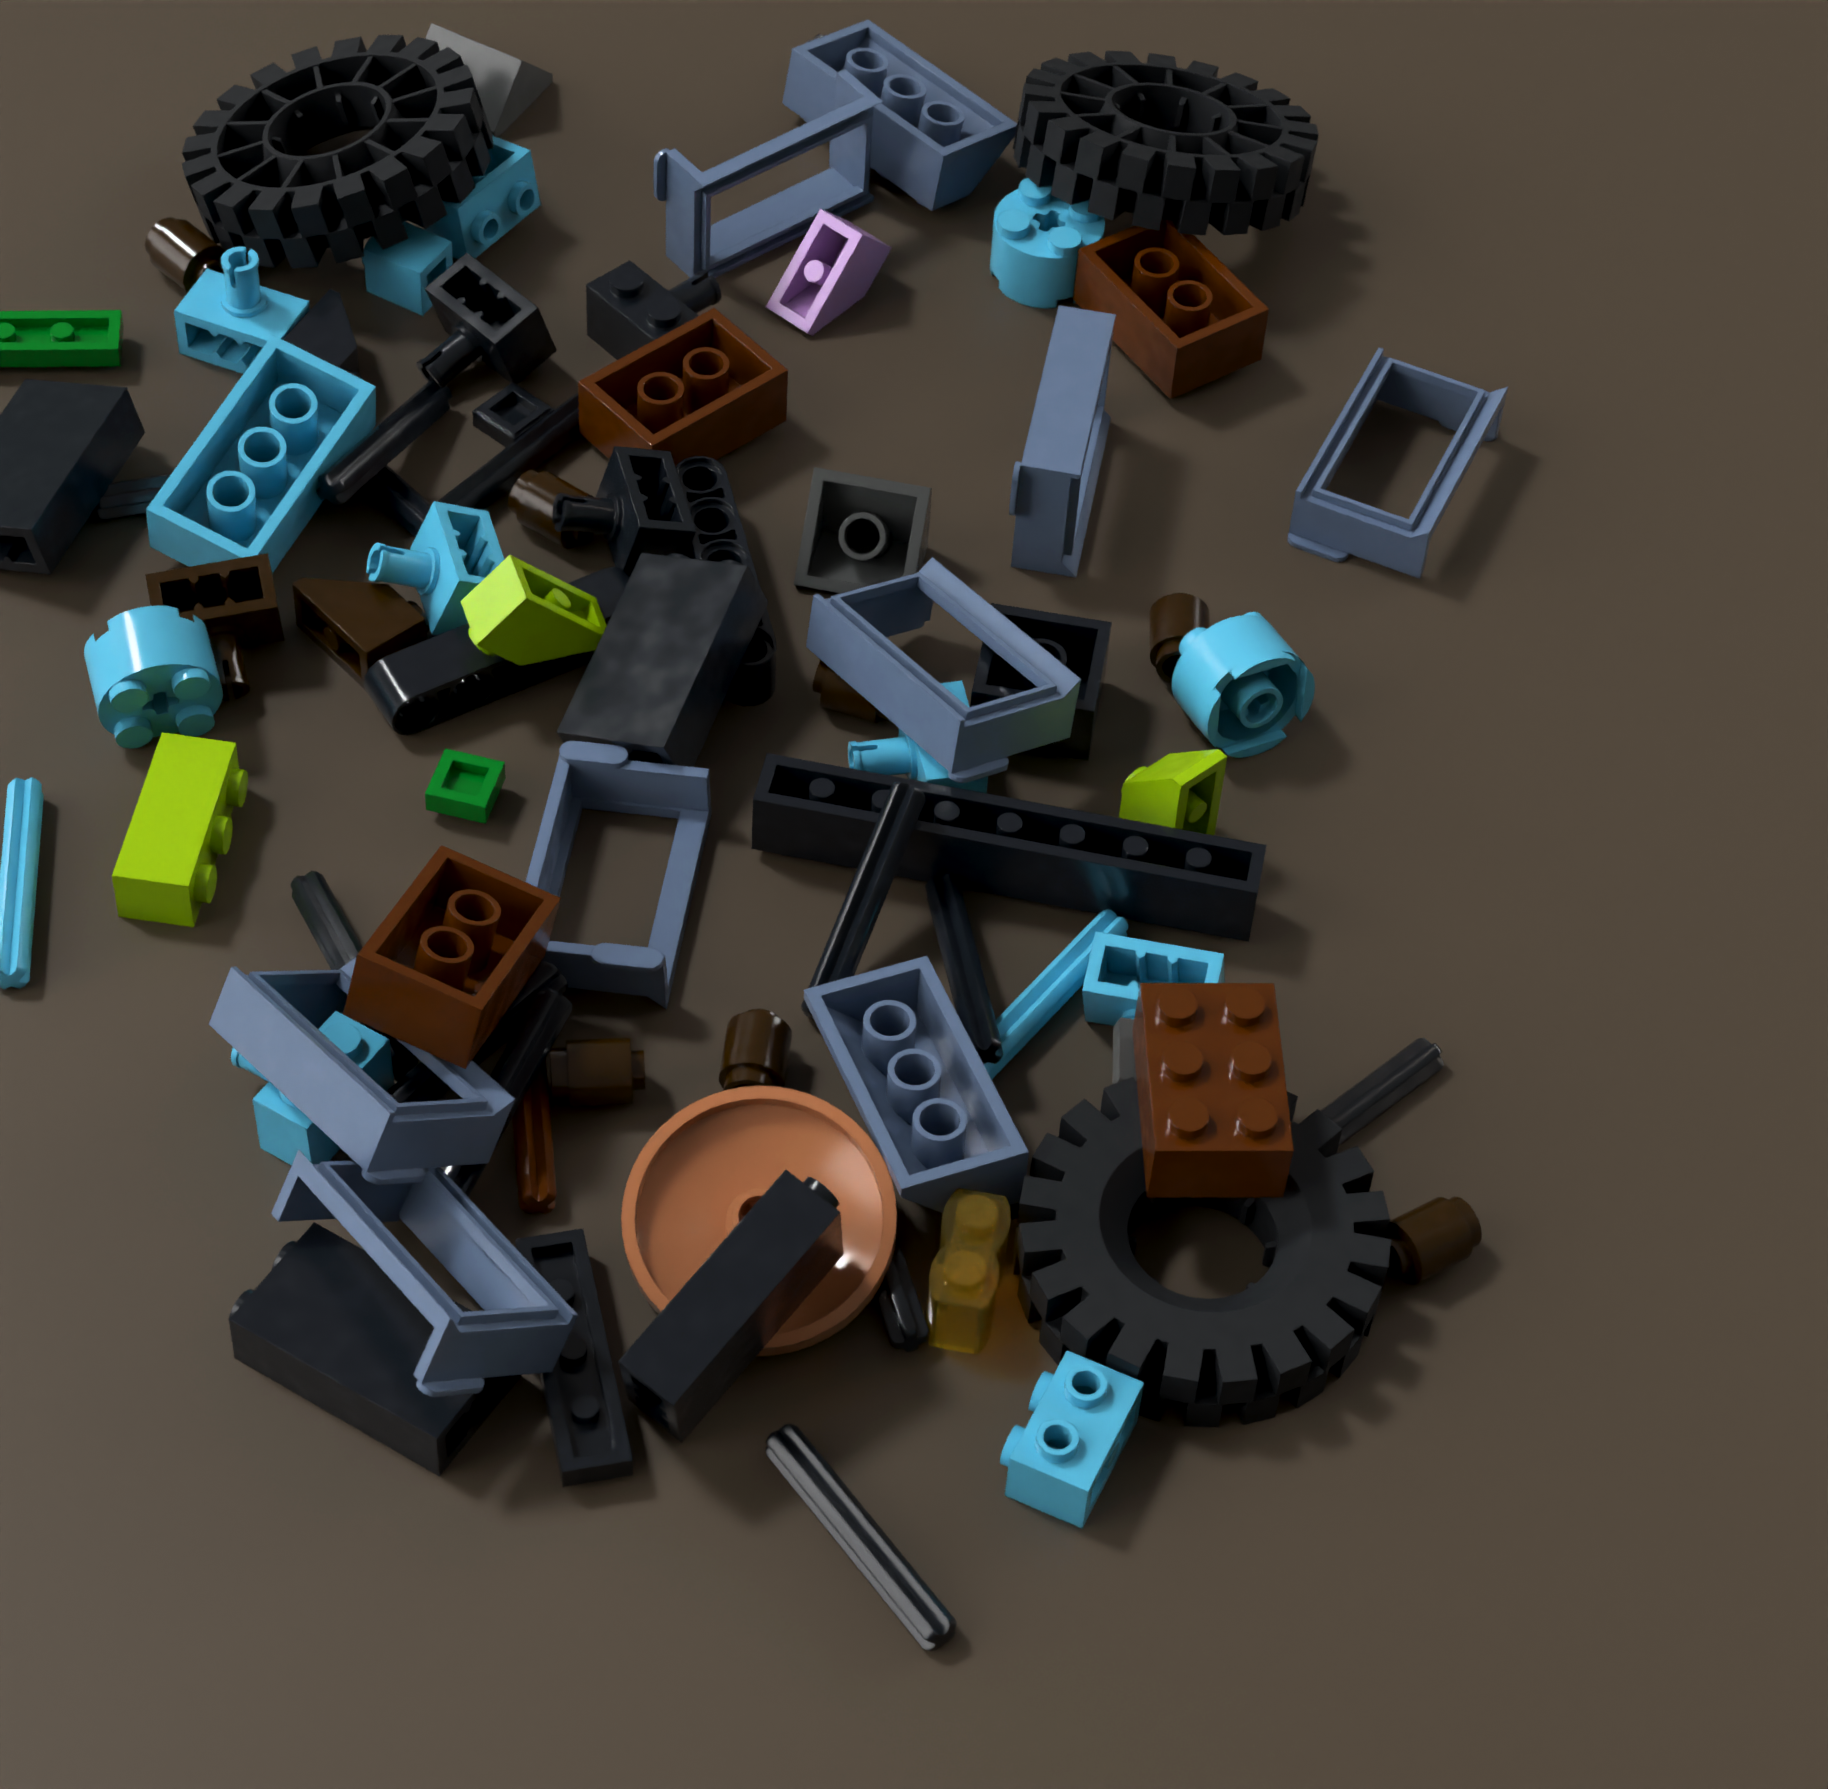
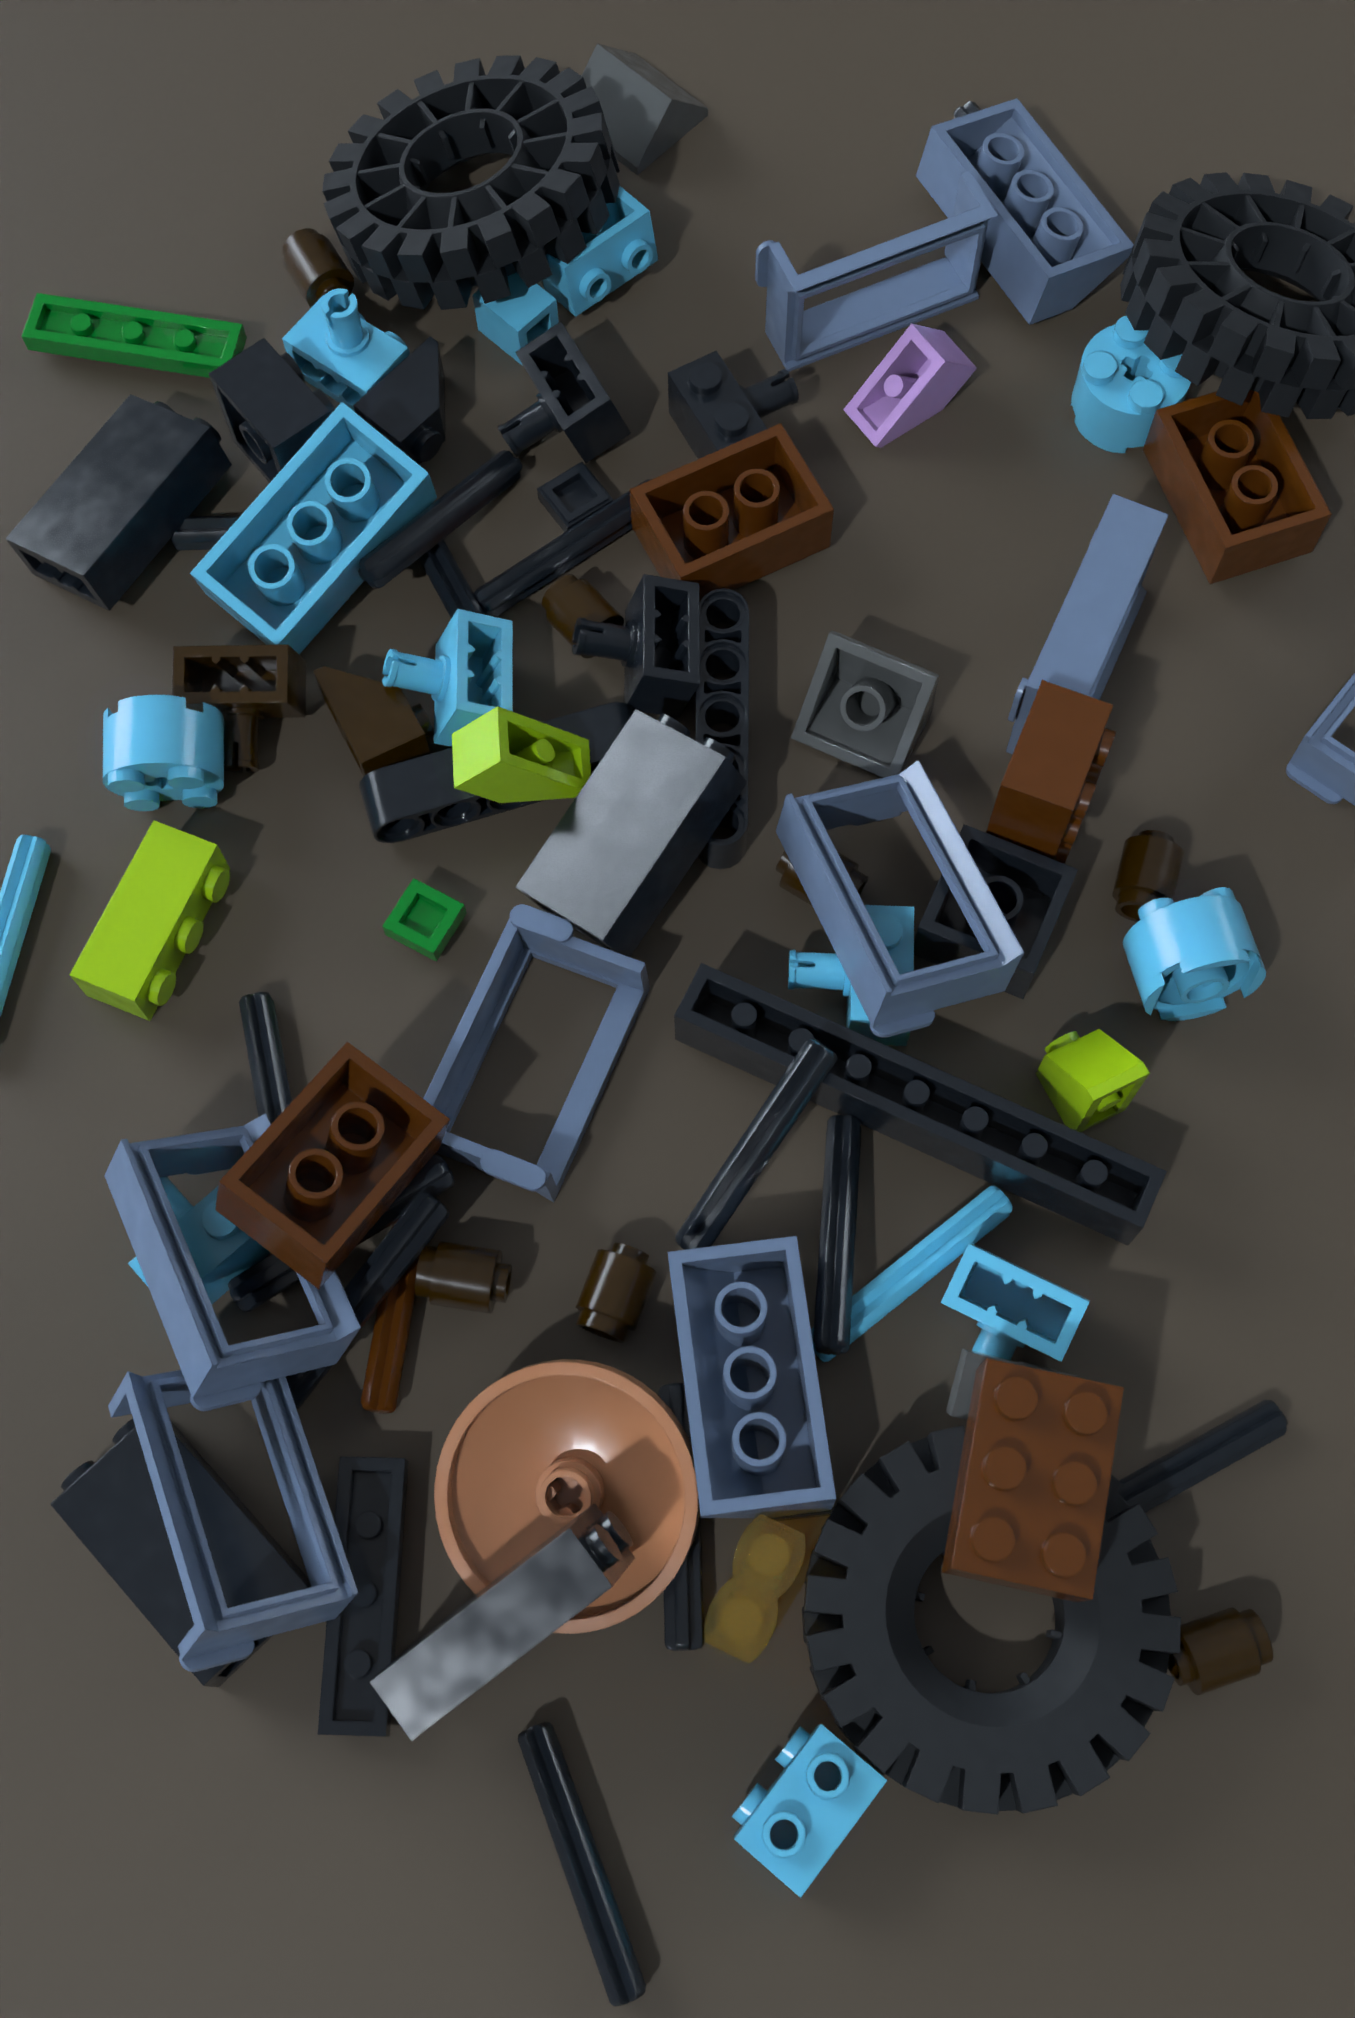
camera: 20 degrees right, 20 degrees up
(181, 370) = (268, 406): none -> black brick
(1065, 534) = (1052, 772): none -> reddish brown brick

